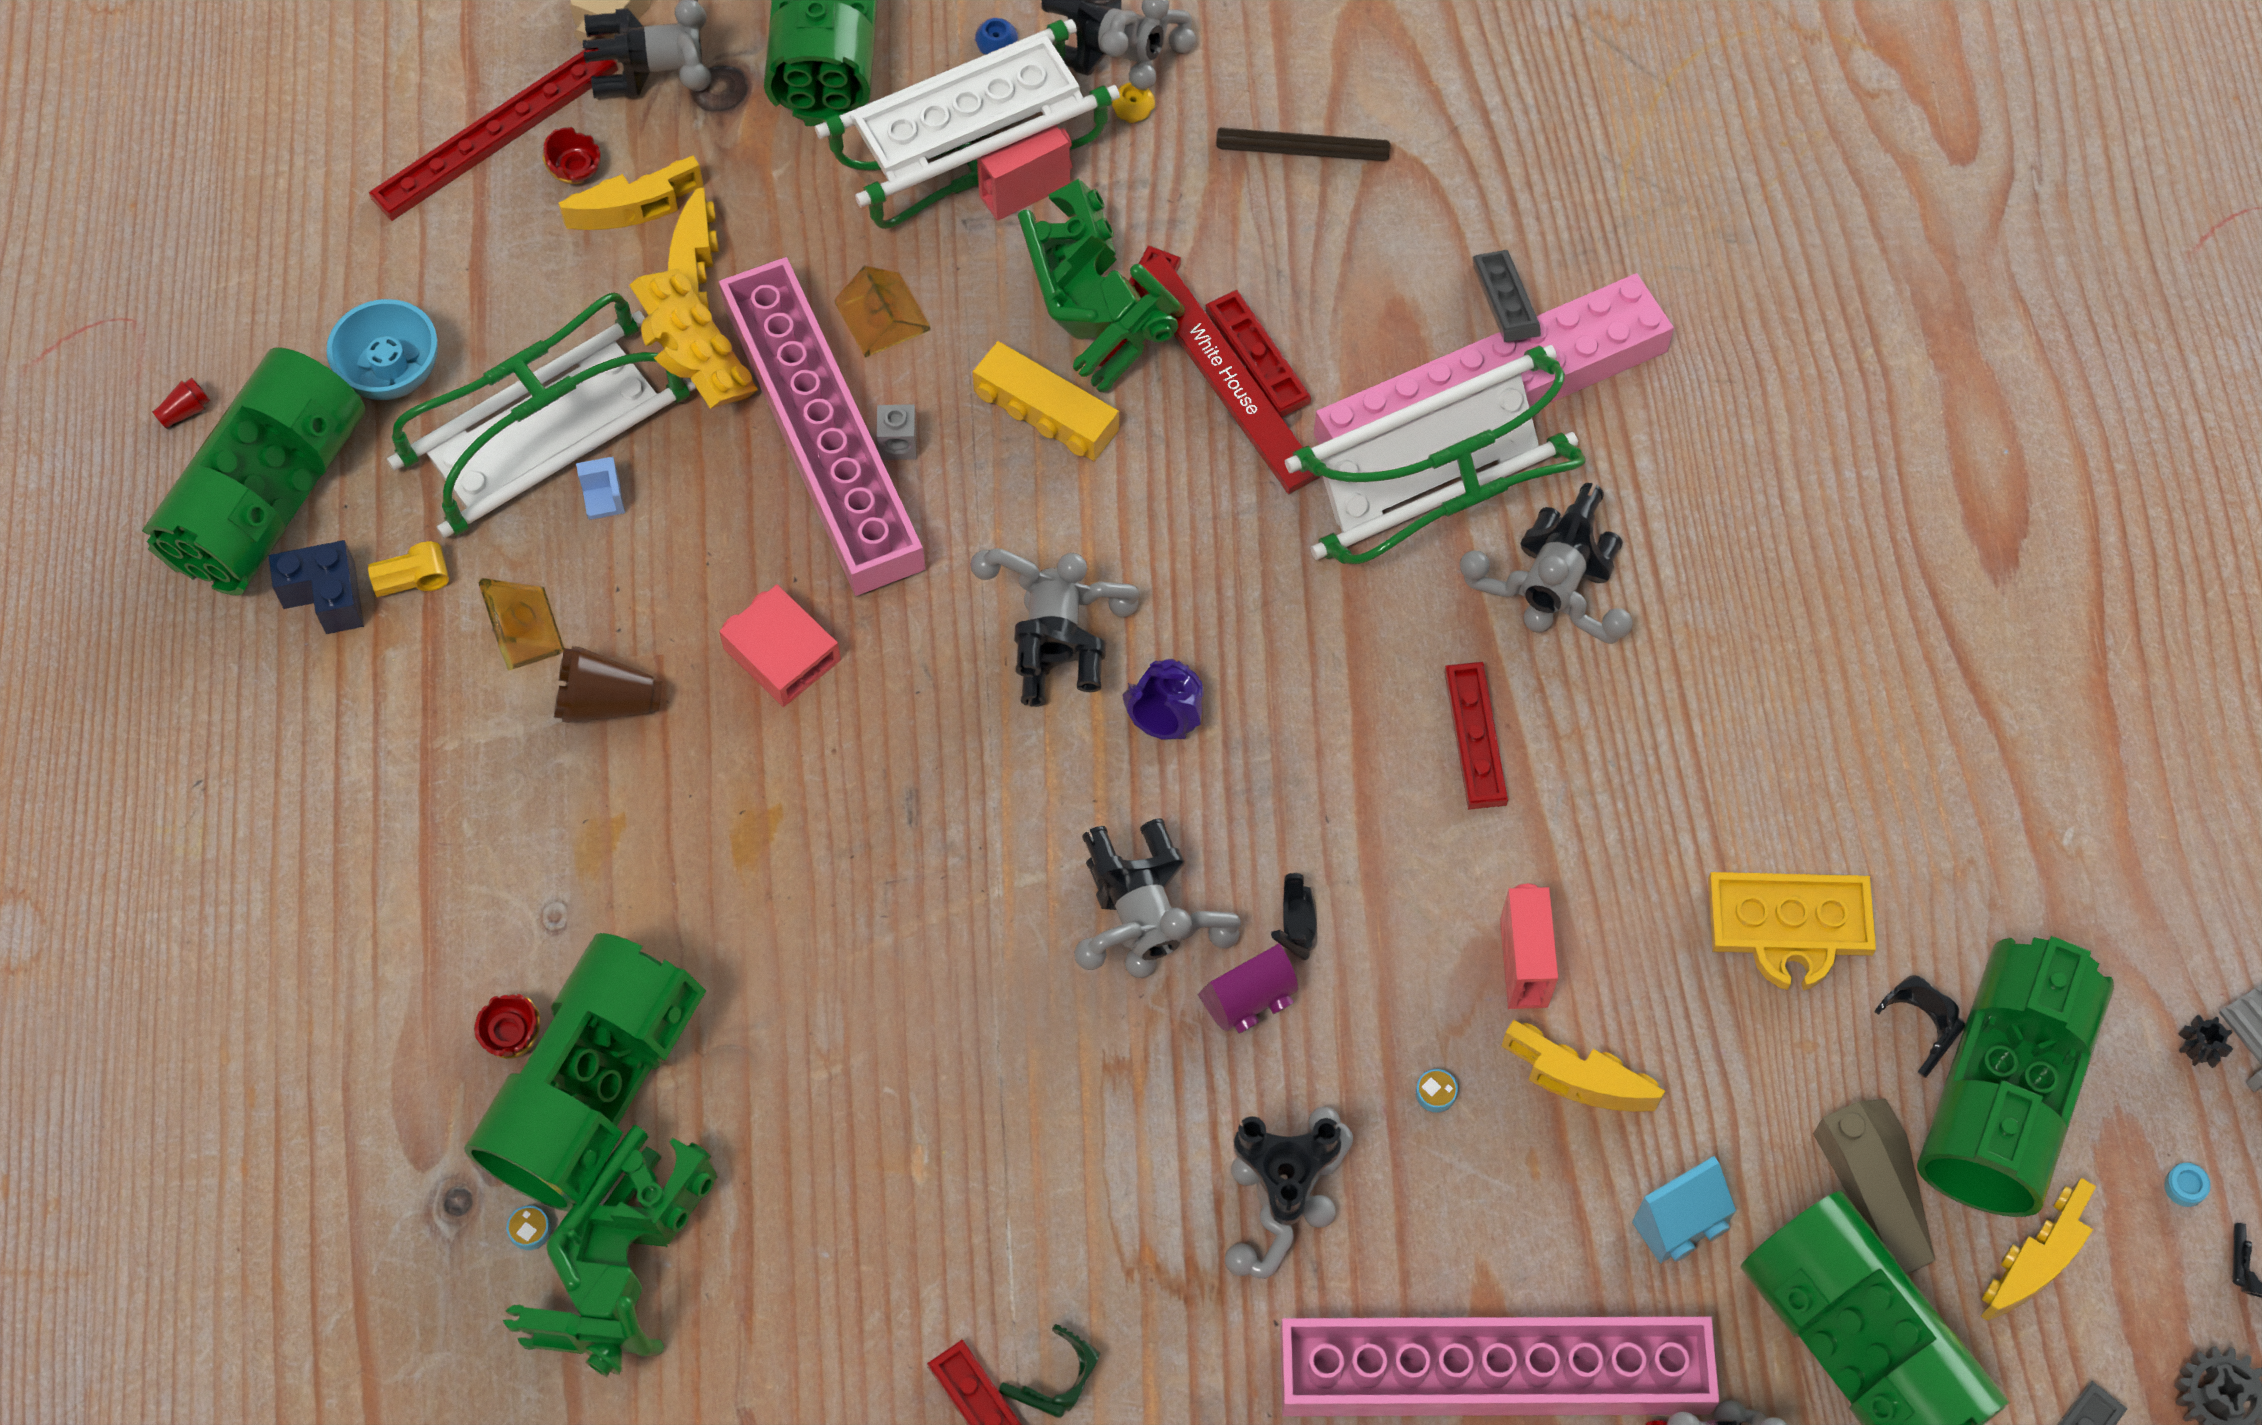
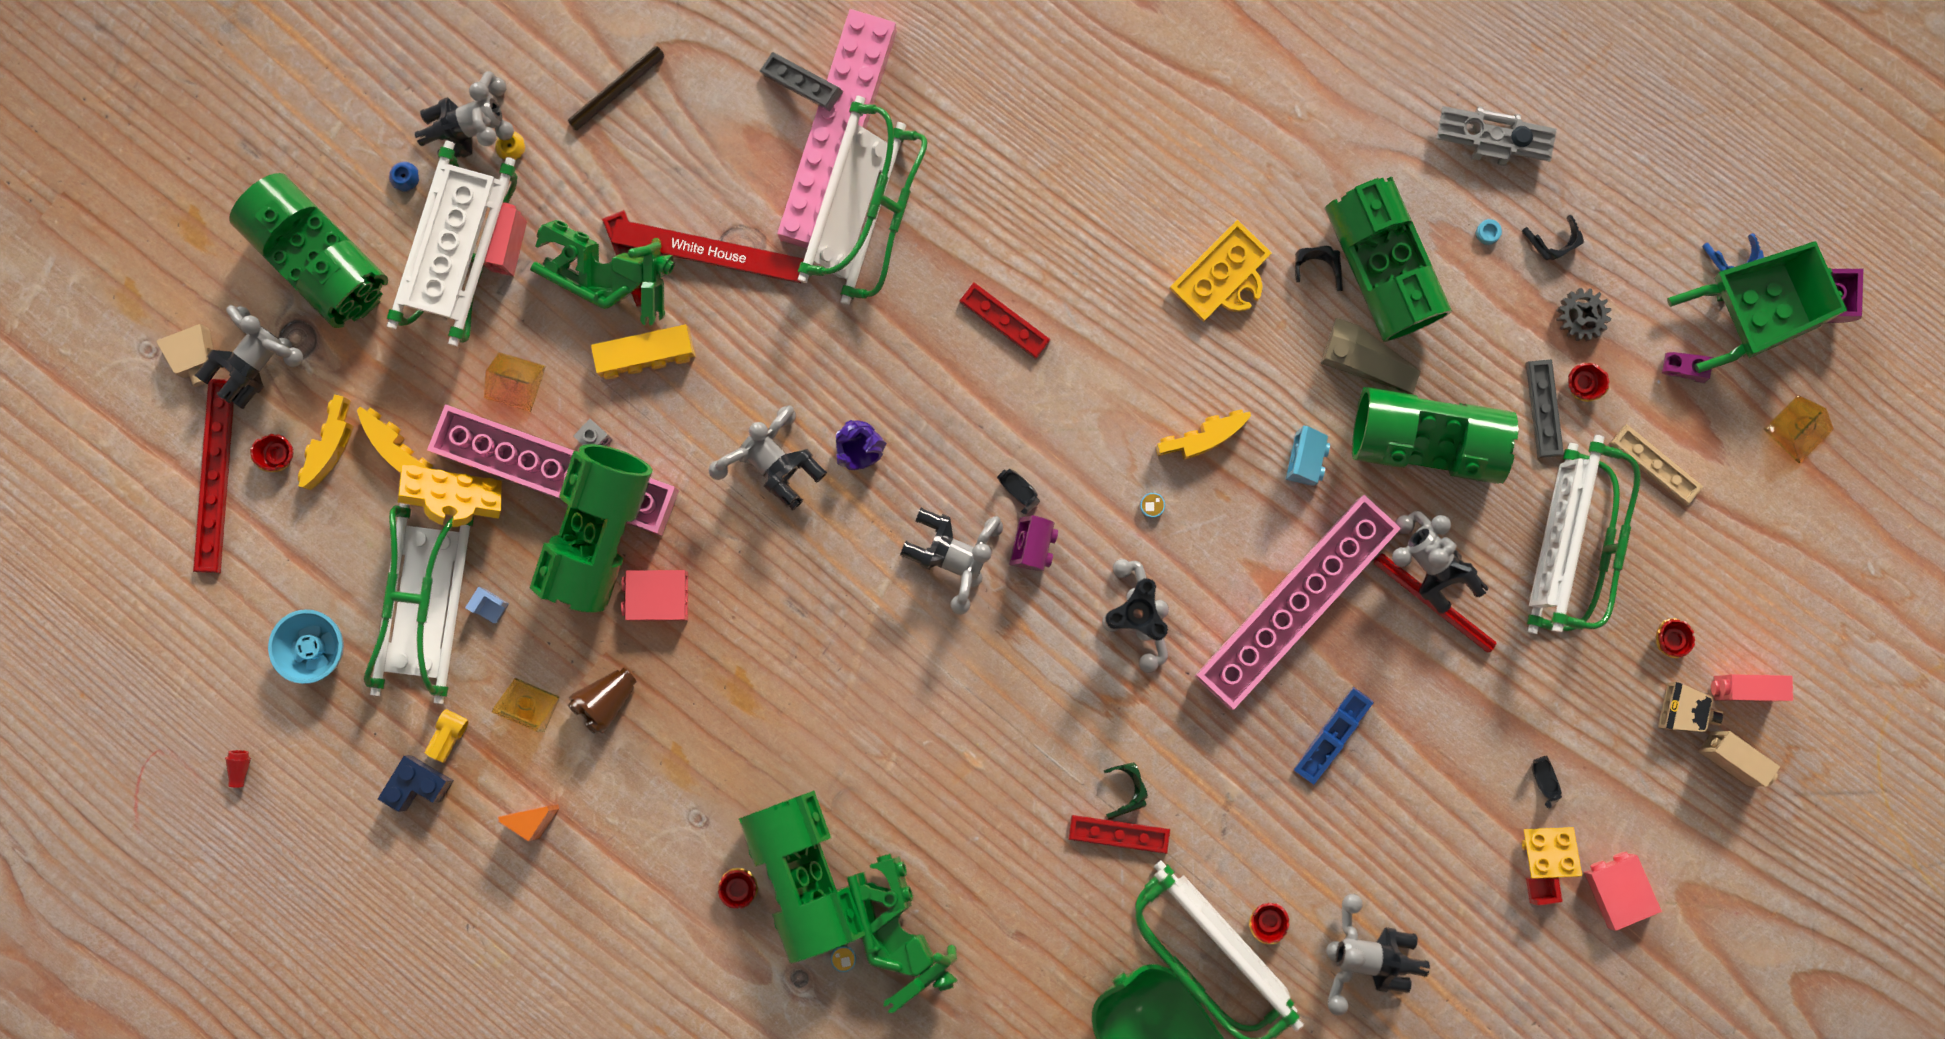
camera: 45 degrees left, 20 degrees up
(254, 471) = (322, 767): green cylinder -> none
(388, 732) = (530, 823): none -> orange slope
(736, 525) = (602, 494): none -> green cylinder
(1258, 353) = (713, 225): red plate -> none
(1528, 947) = (1130, 403): coral brick -> none
(1563, 556) = (962, 195): wheel -> none
(2042, 1258) = (1464, 334): yellow slope -> none
(2216, 1039) = (1442, 151): black gear -> none

